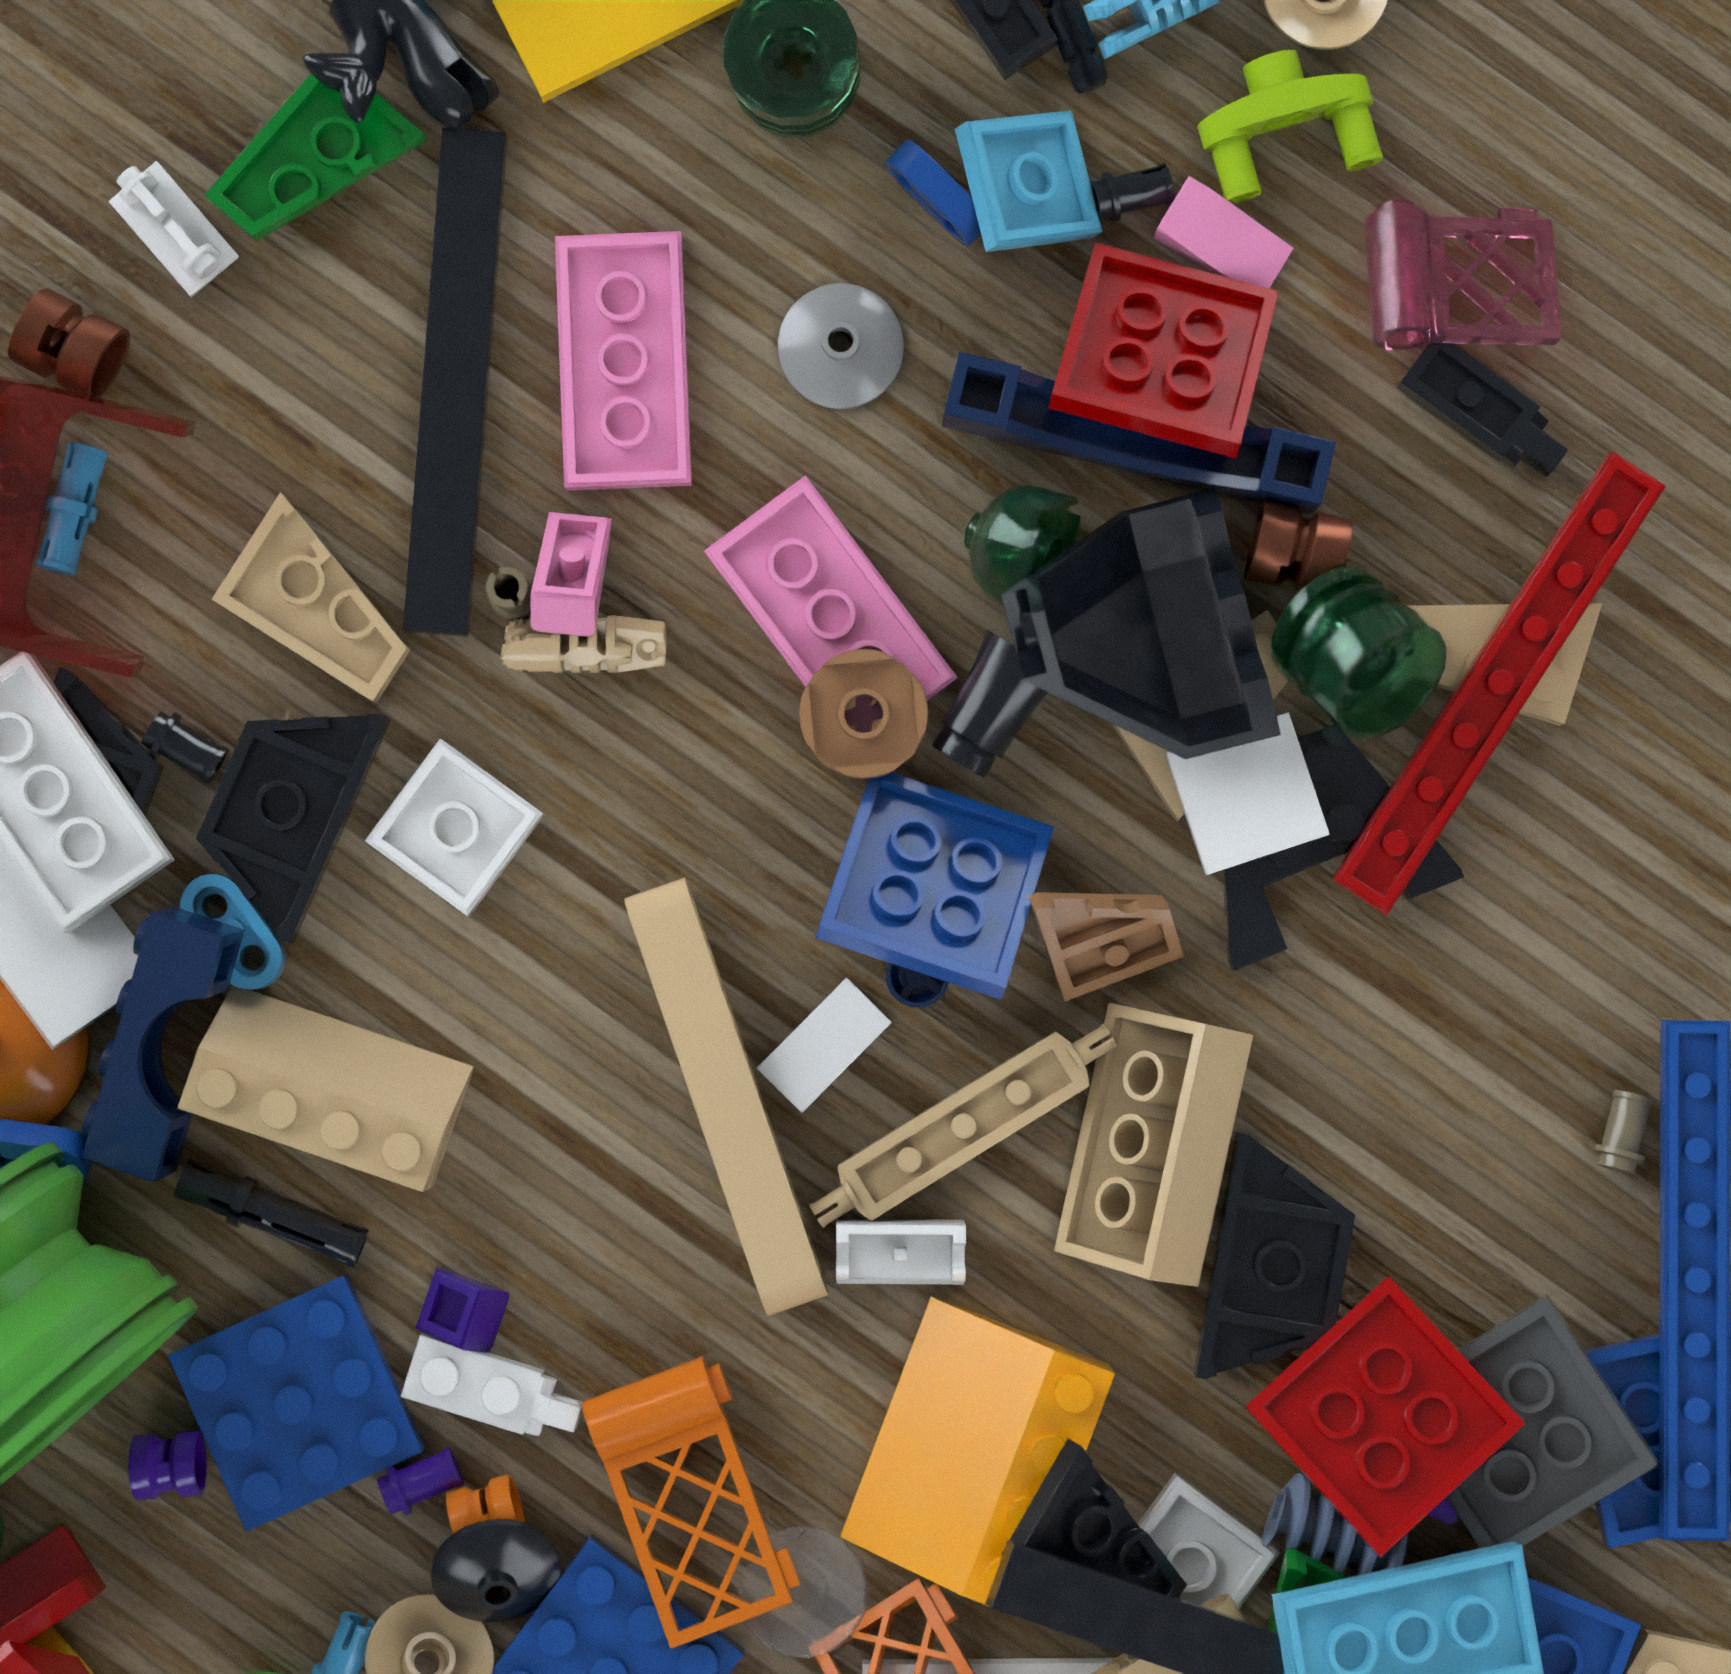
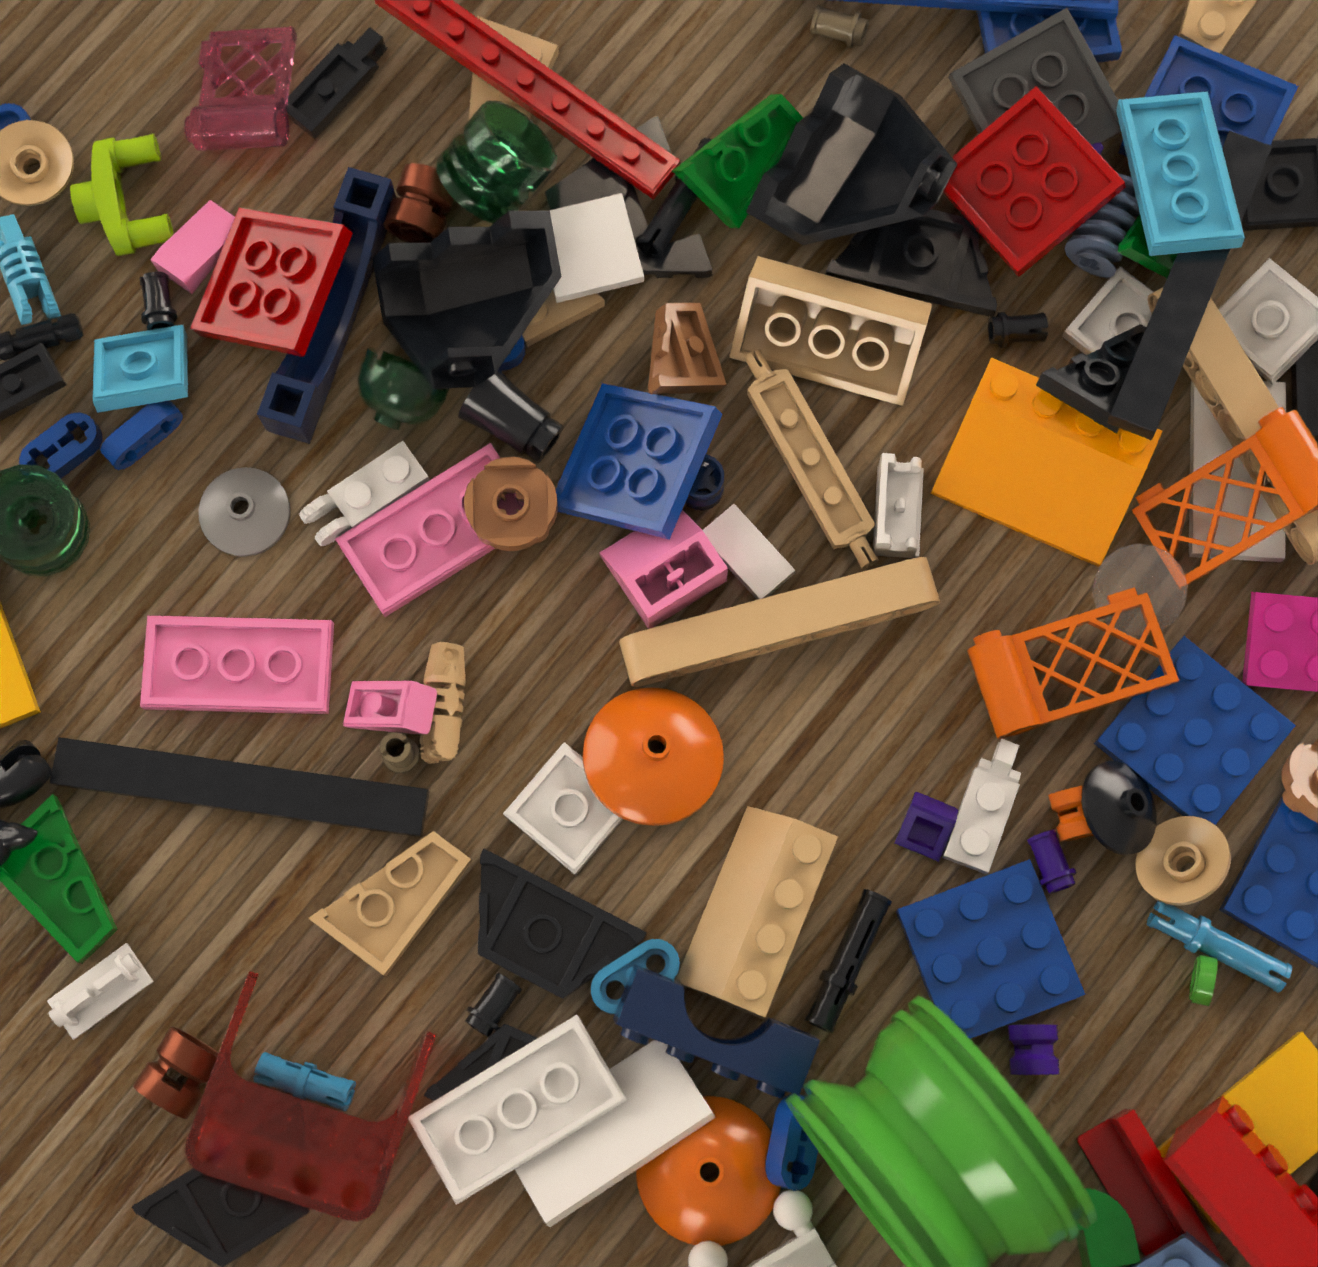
camera: 80 degrees left, 10 degrees down
(523, 888) = (646, 784): none -> orange dish
(774, 928) = (664, 573): none -> bright pink slope
(877, 515) = (366, 492): none -> white hinge
(921, 73) = (60, 448): none -> blue beam
(1175, 1408) = (1017, 328): none -> black pin
(1361, 930) = (669, 216): none -> black pin
(1396, 1166) = (853, 164): none -> black panel
(1402, 1005) = (734, 161): none -> green wing

